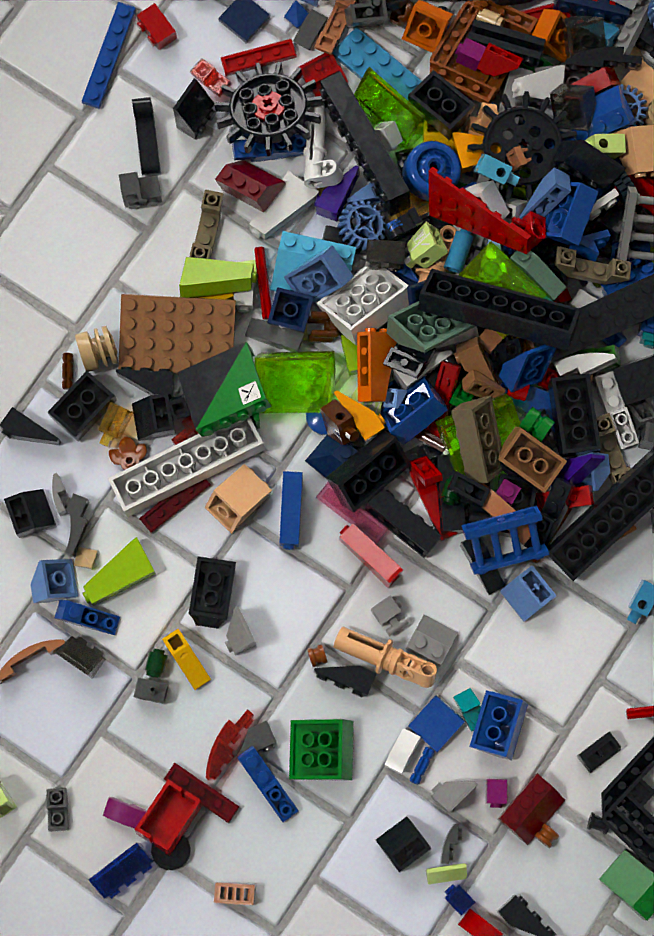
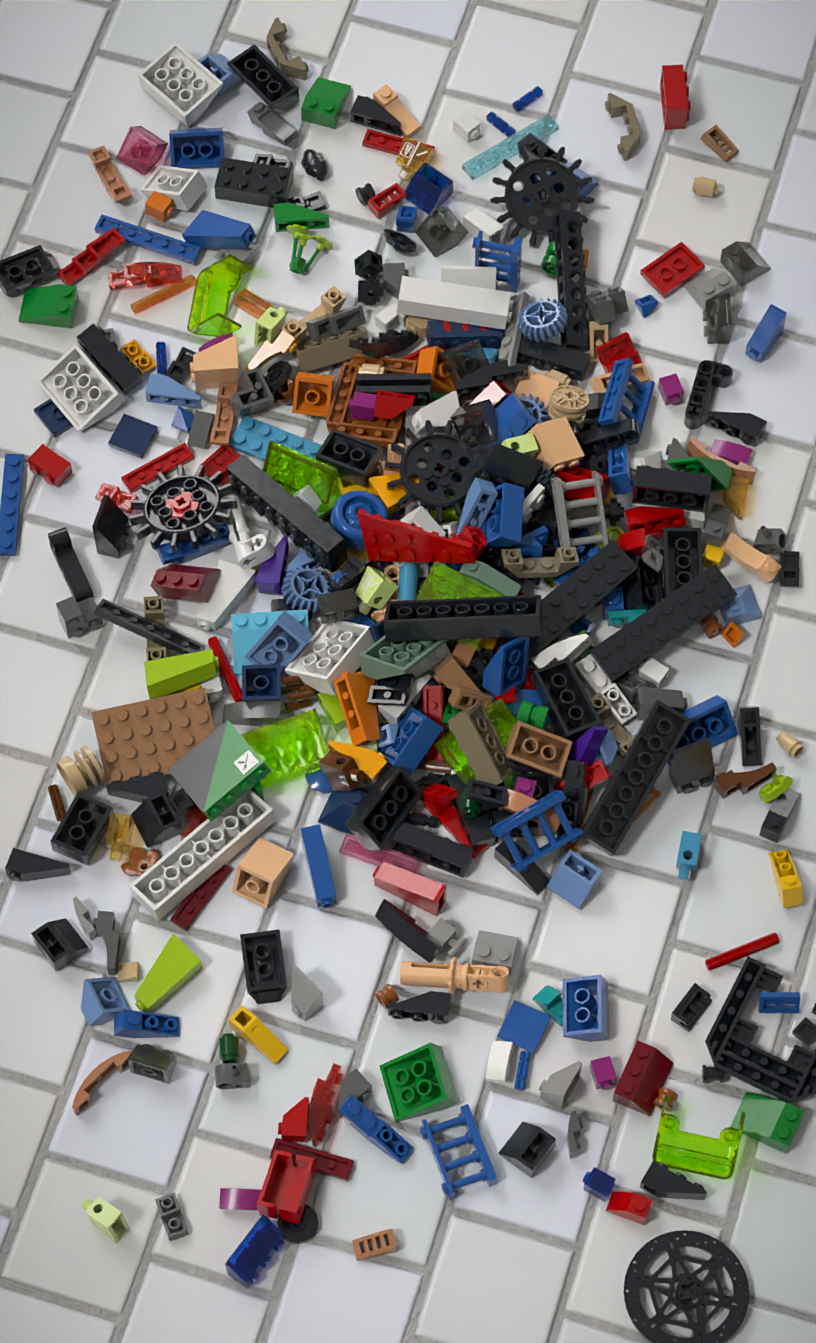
camera: 15 degrees left, 15 degrees down
(196, 754) = (295, 1122): none -> red slope
(200, 223) = (147, 628): none -> black plate
(353, 596) = (407, 931): none -> black slope
(354, 818) = (472, 1137): none -> blue fence
(403, 489) = (421, 819): none -> black axle
(446, 873) = (578, 1163): yellowish green slope -> none
(488, 166) = (413, 492): medium azure torso -> none
(516, 158) = (437, 480): nougat tile -> none
(561, 895) = (696, 1152): none -> clear neon green windscreen

